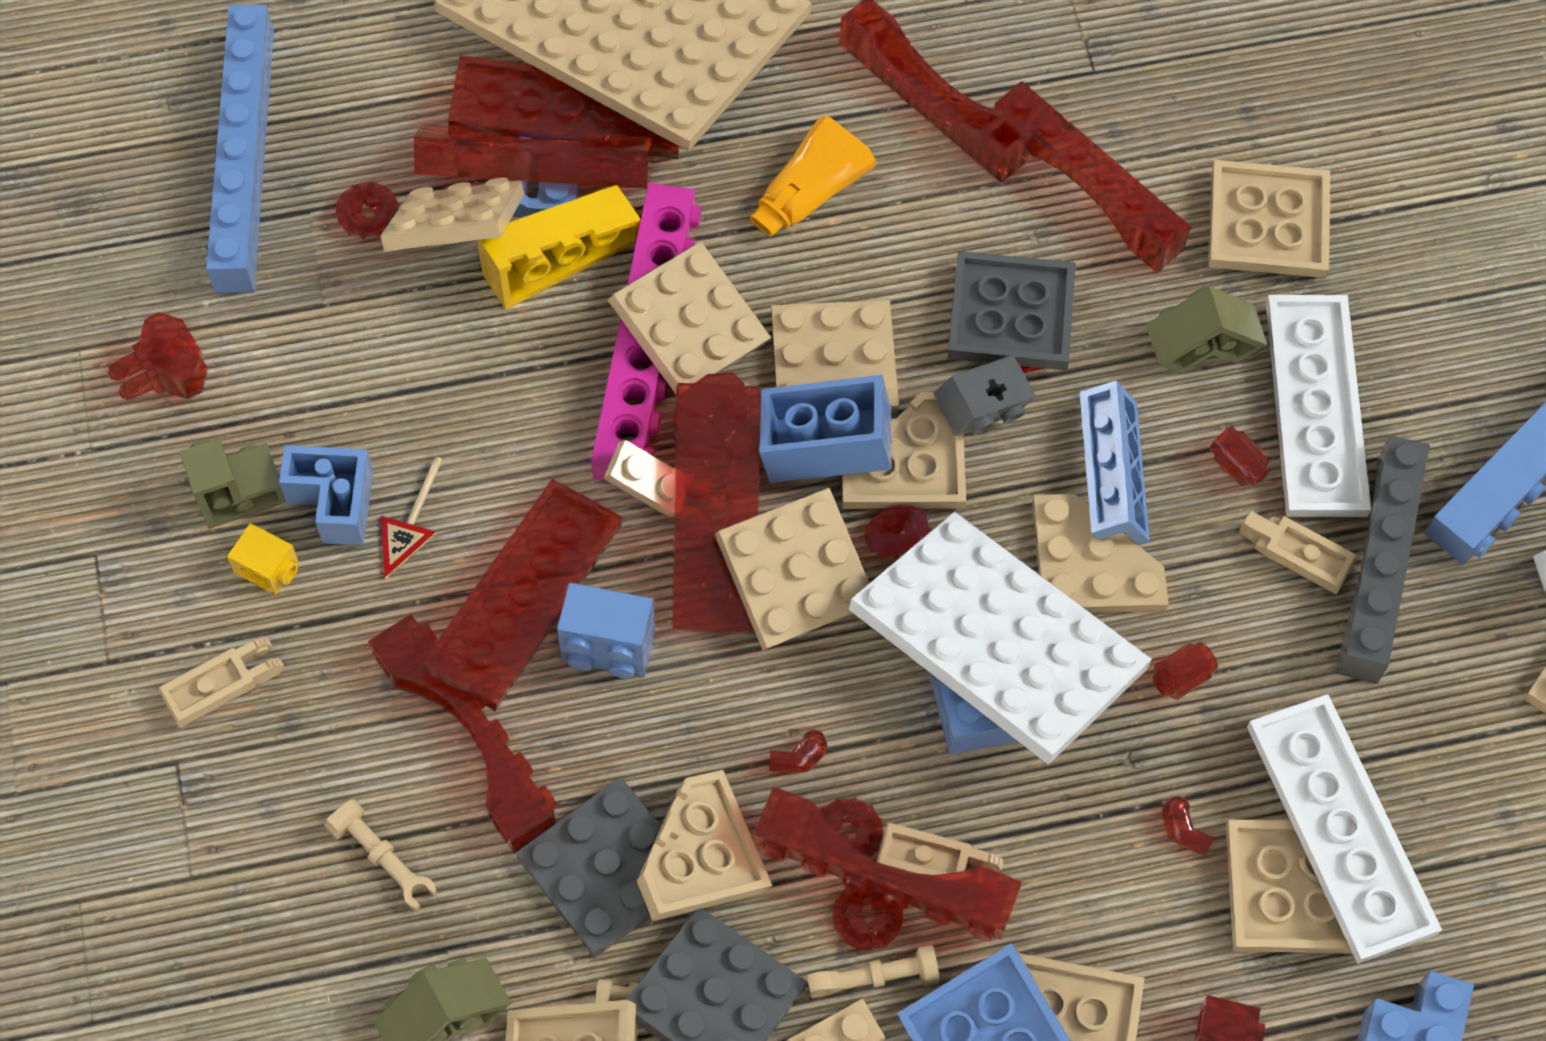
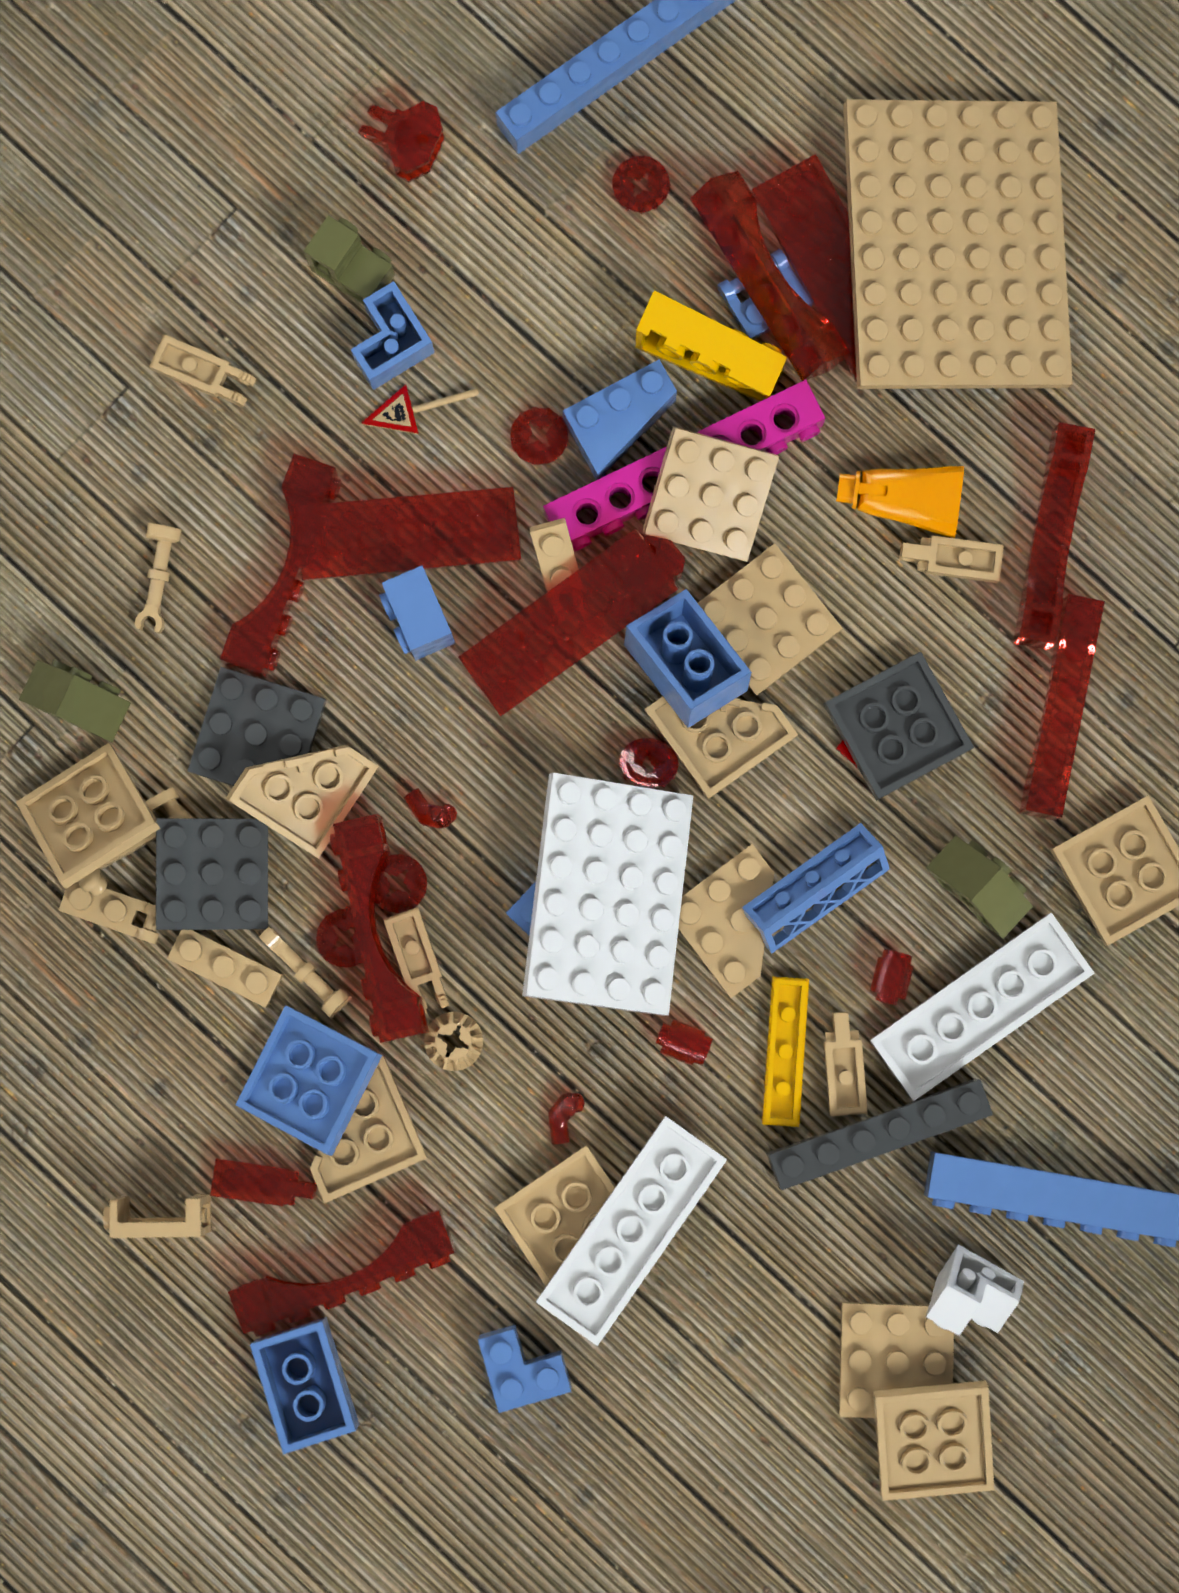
camera: 60 degrees right, 20 degrees up
(263, 559) = (309, 331): yellow brick -> none
(453, 214) = (666, 258): tan plate -> none
(535, 443) = (538, 452): none -> clear red gear
(557, 355) = (618, 415): none -> medium blue wedge
(793, 567) = (562, 711): tan plate -> none
(893, 178) = (955, 558): none -> tan hinge
(985, 395) = (822, 761): dark grey brick -> none
(1038, 899) = (460, 1057): none -> tan gear
(1250, 593) = (785, 1051): none -> yellow tile

